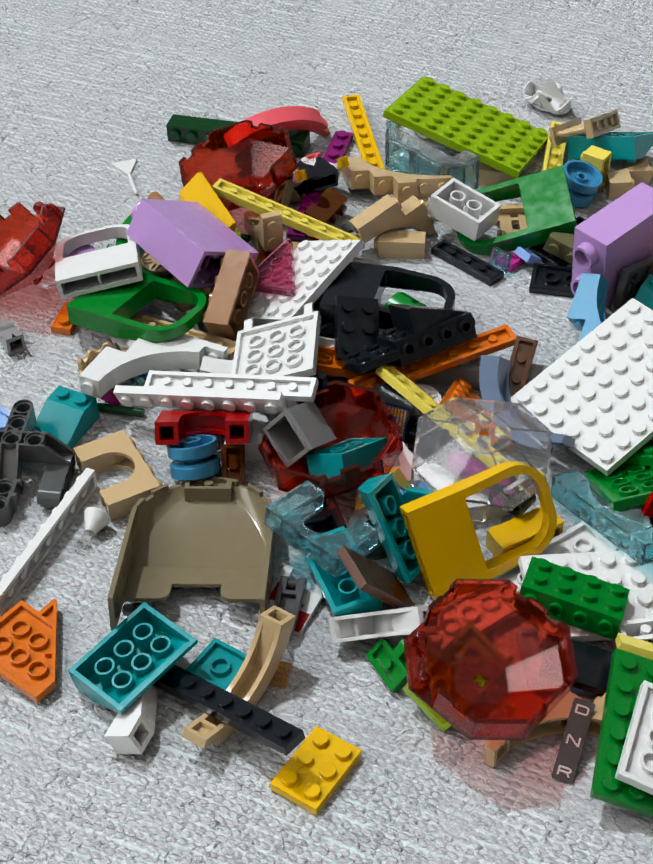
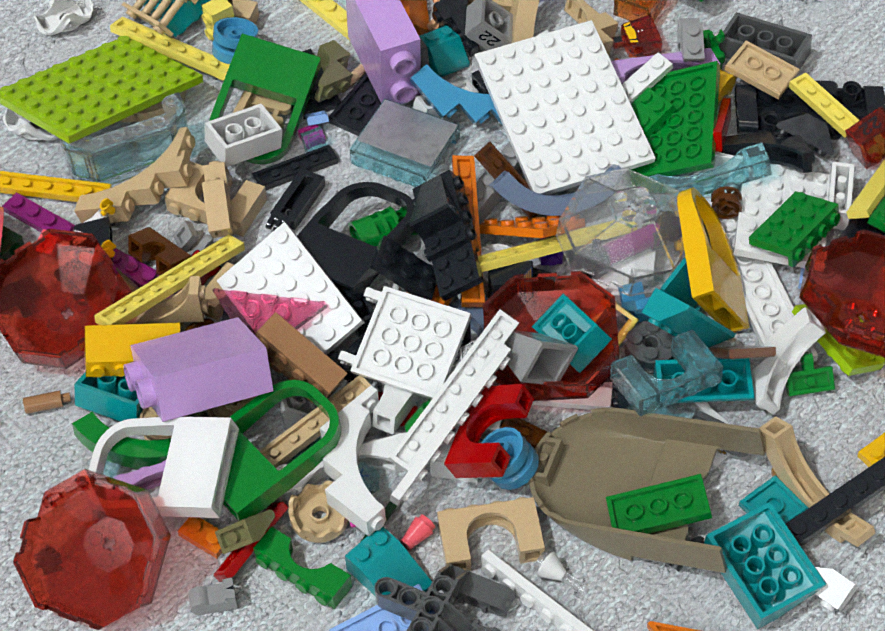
camera: 70 degrees left, 10 degrees up
(58, 358) = (326, 583): none -> green arch
(64, 339) = (239, 556): none -> red tile
(65, 326) = (244, 531): none -> olive tile
(103, 429) = (417, 532): none -> coral cone
(176, 571) = (660, 506): none -> green plate
(445, 269) = (298, 198): none -> black hinge
(532, 308) = (403, 143): none -> flat silver panel
(580, 537) = (726, 204): none -> reddish brown wheel

